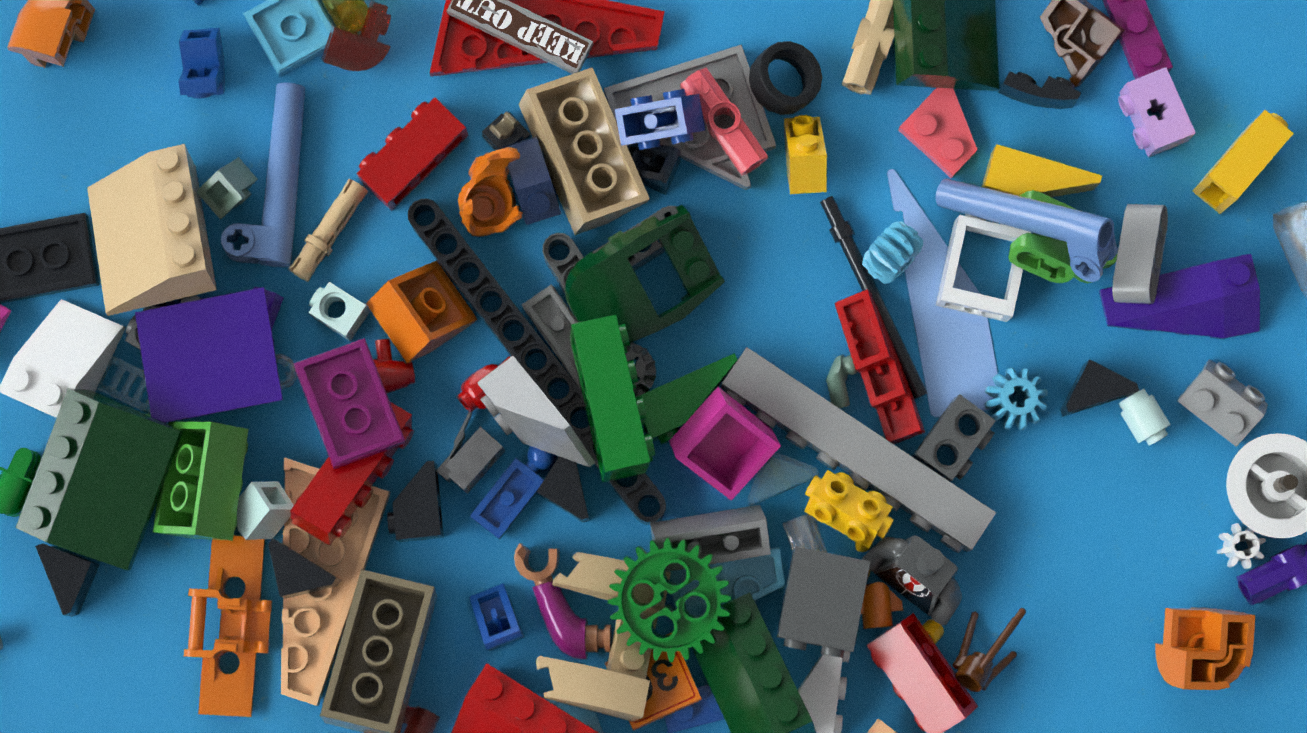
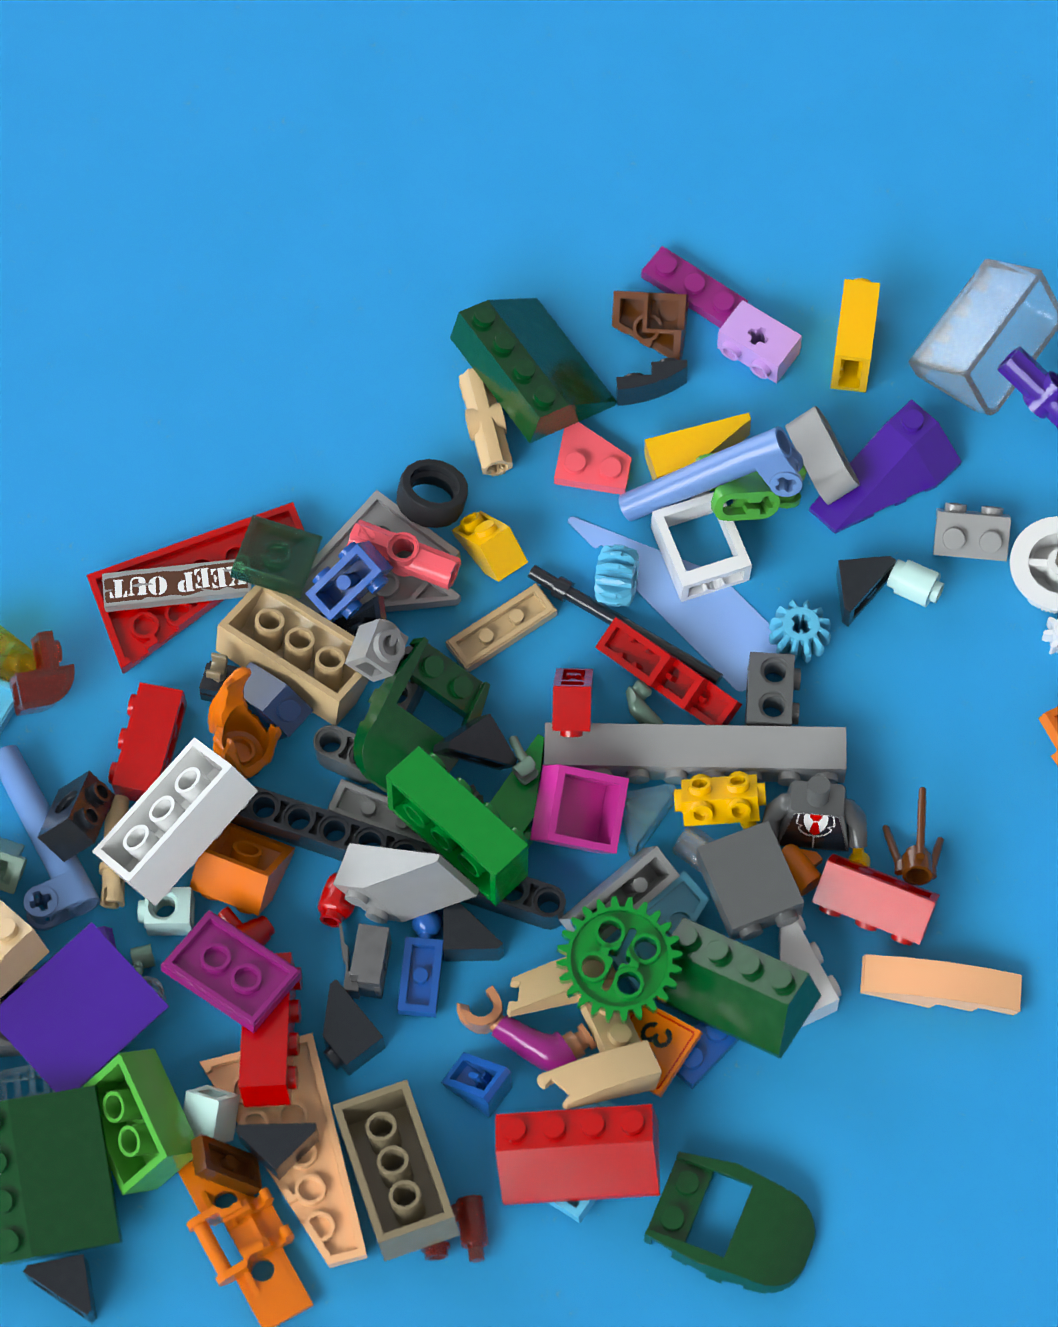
camera: 30 degrees left, 15 degrees down
(245, 563) = (226, 1165): none -> reddish brown plate
(293, 336) = (142, 958): none -> sand green hand
(309, 184) = (76, 816): none -> black brick
(380, 246) = (175, 821): none -> white brick
(616, 55) = (276, 556): none -> clear green plate
(643, 198) = (377, 649): none -> light grey brick
(678, 328) = (479, 744): none -> black slope
(703, 379) = (525, 769): none -> sand green hand
(769, 234) = (501, 628): none -> tan tile
(781, 342) = (572, 701): none -> red slope

